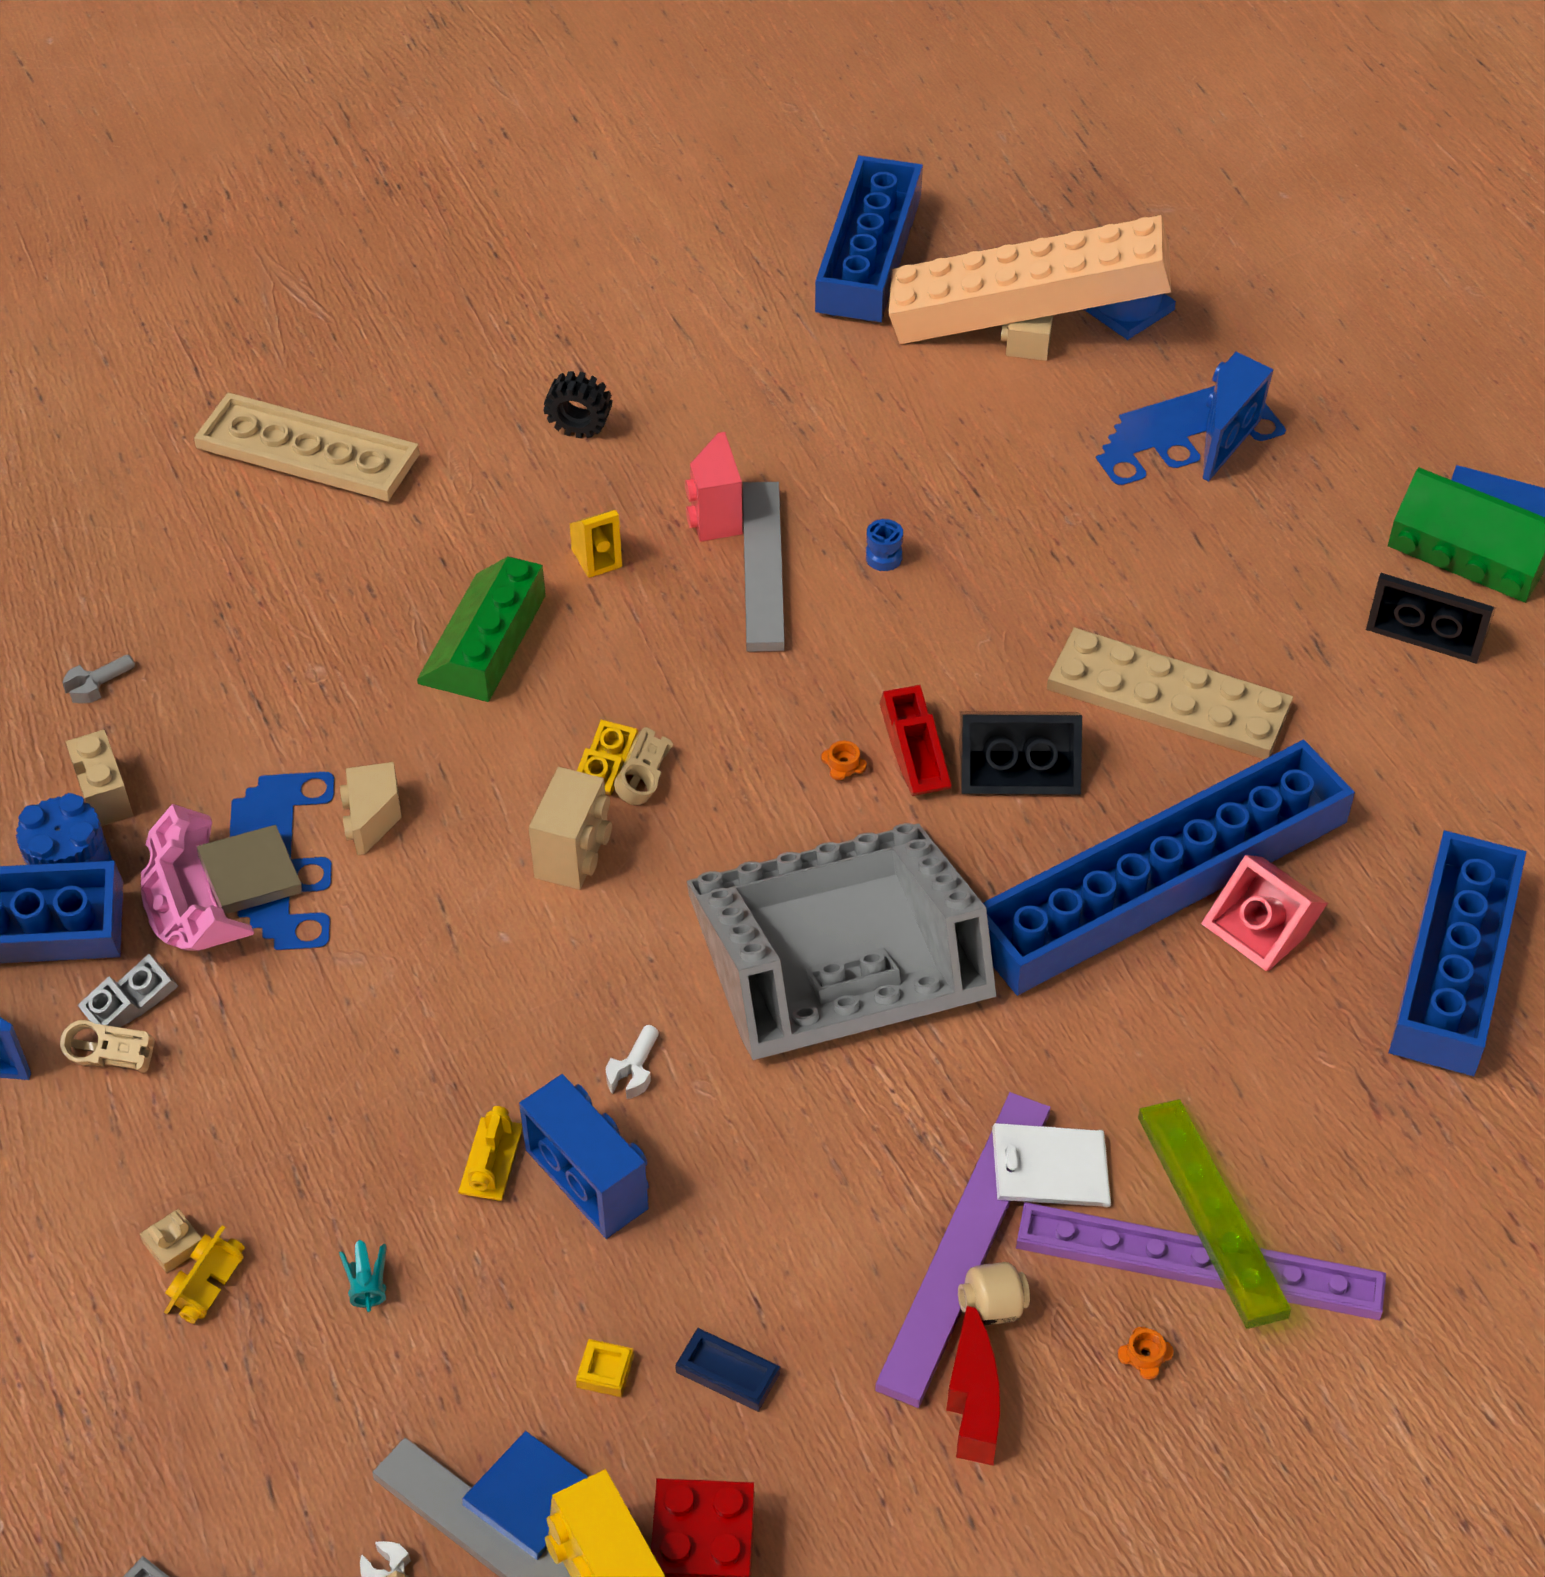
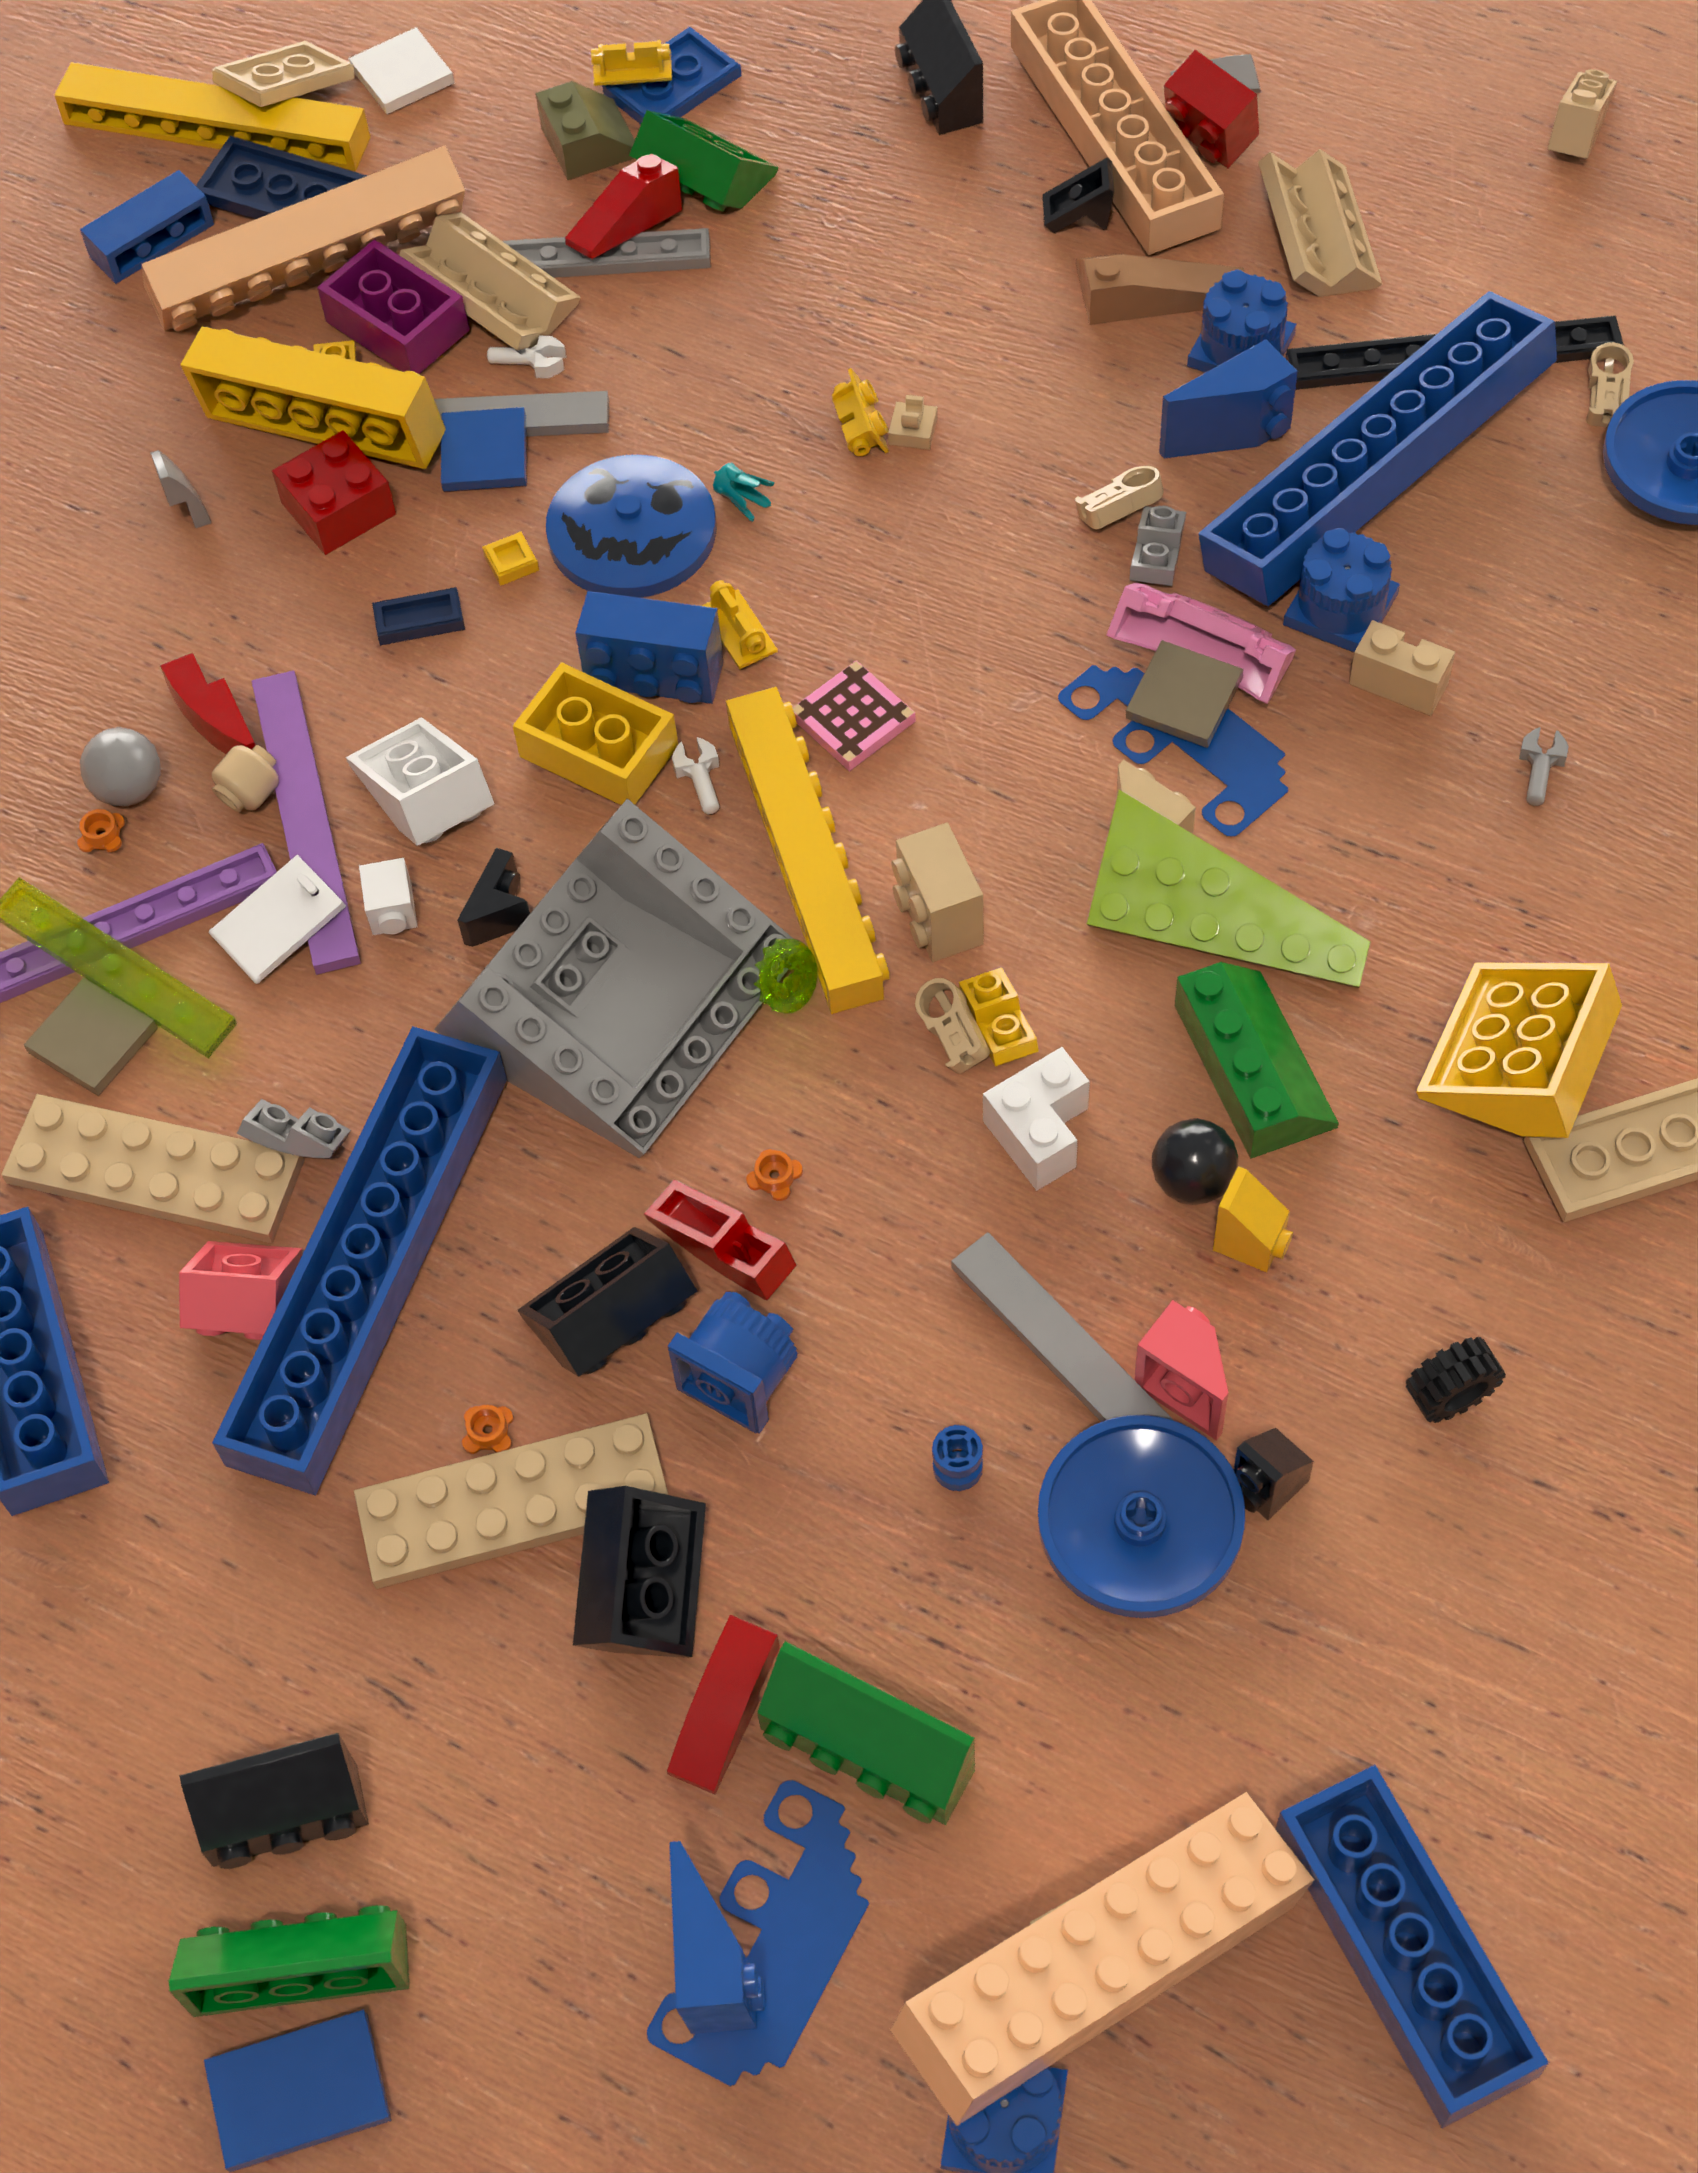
camera: 145 degrees right, 10 degrees up
(332, 521) = (1524, 1045): none -> yellow slope
(410, 732) = (1190, 895): none -> lime wing
(480, 1323) = (631, 526): none -> blue dish
(481, 1027) = (853, 715): none -> tile
(588, 587) = (1194, 1161): none -> black piece
(616, 947) = (806, 851): none -> yellow brick
(650, 680) = (1030, 1116): none -> white brick
(690, 1122) = (595, 735): none -> yellow brick
(722, 856) = (798, 986): none -> clear neon green gear
(726, 416) = (1270, 1471): none -> black slope
(813, 452) = (1141, 1516): none -> blue dish
(850, 1202) = (422, 780): none -> white slope
(882, 1056) = (493, 905): none -> black slope
(952, 1117) = (388, 896): none -> white brick
(975, 650) = (734, 1360): none -> blue piece
(1060, 455) = (866, 1735): none -> green slope
(1094, 1377) = (120, 767): none -> light grey piece
(1123, 519) = (723, 1704): none -> red slope
(1129, 592) = (639, 1573): none -> black slope
(1154, 990) = (310, 1136): none -> light grey slope
(1156, 735) = (477, 1419): none -> orange plate
(1266, 1176) = (90, 1036): none -> dark tan tile
(1277, 1048) = (153, 1168): none -> tan plate

